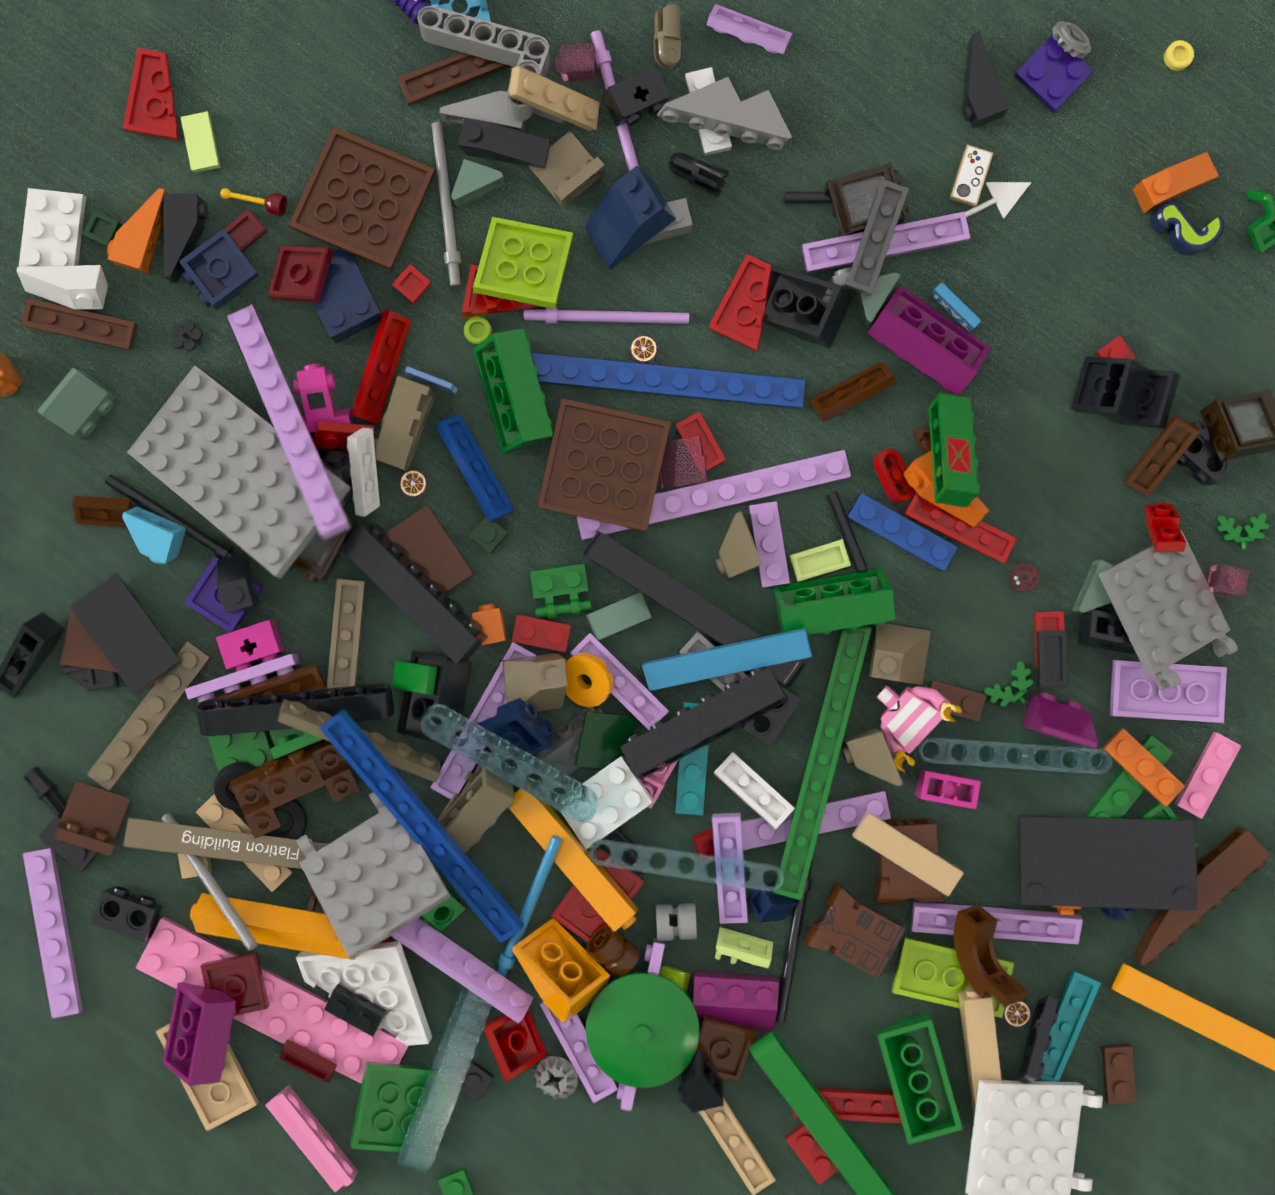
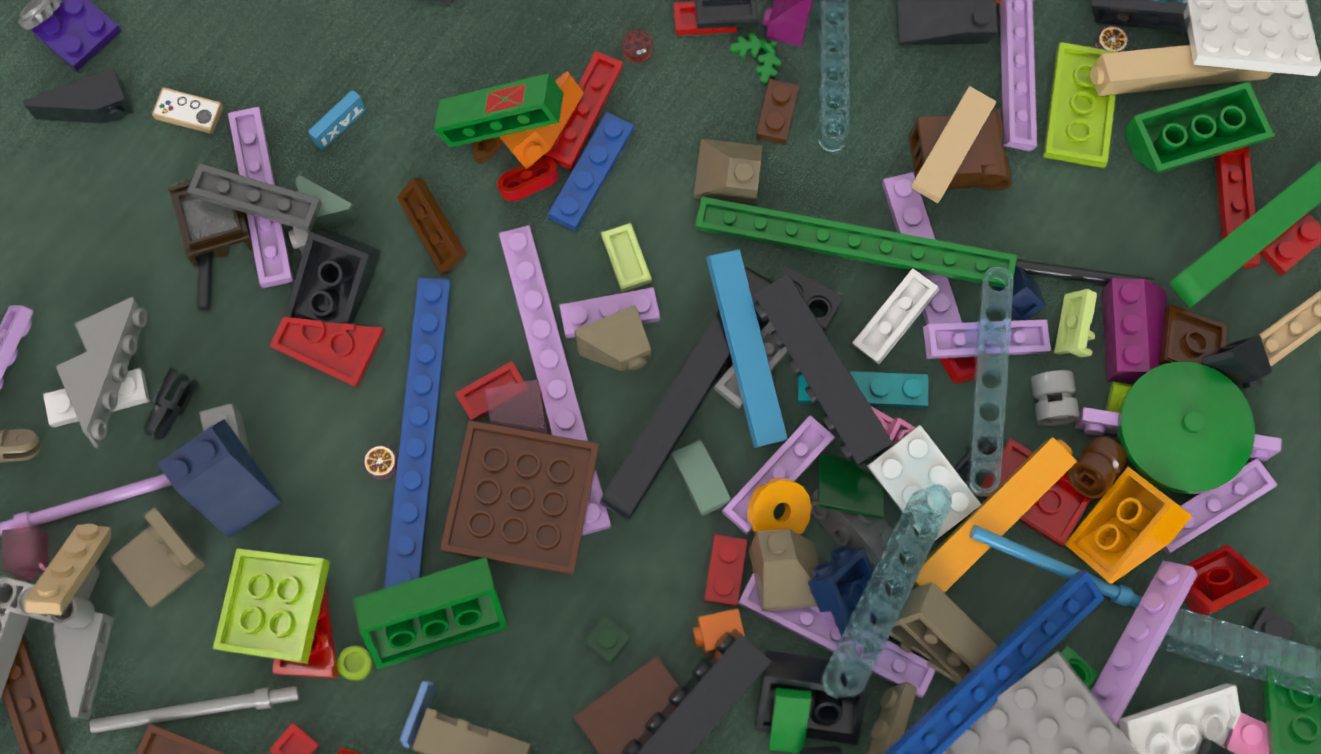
camera: 95 degrees left, 15 degrees down
(413, 483) = (546, 736): tile -> none
(474, 182) = (167, 671): sand green slope -> none
(474, 467) = (525, 658): blue plate -> none
(502, 143) = (121, 637): black slope -> none
(553, 315) = (337, 570): lavender bar -> none
(559, 1068) = (1242, 527): light grey gear -> none
(560, 582) = (663, 553): green plate -> none
(636, 97) = (73, 477): black brick -> none
(835, 602) = (674, 234): green slope -> none
(847, 531) = (592, 229): black bar -> none
(855, 932) = (1045, 202): reddish brown piece -> none
(871, 754) = (844, 187): dark tan slope -> none
(911, 718) = (800, 150): torso -> none
(929, 341) = (376, 146): magenta slope -> none
(947, 788) = (876, 111): dark pink brick -> none
(976, 956) = (1064, 70): reddish brown arch -> none
(1003, 195) = (211, 77): white piece -> none

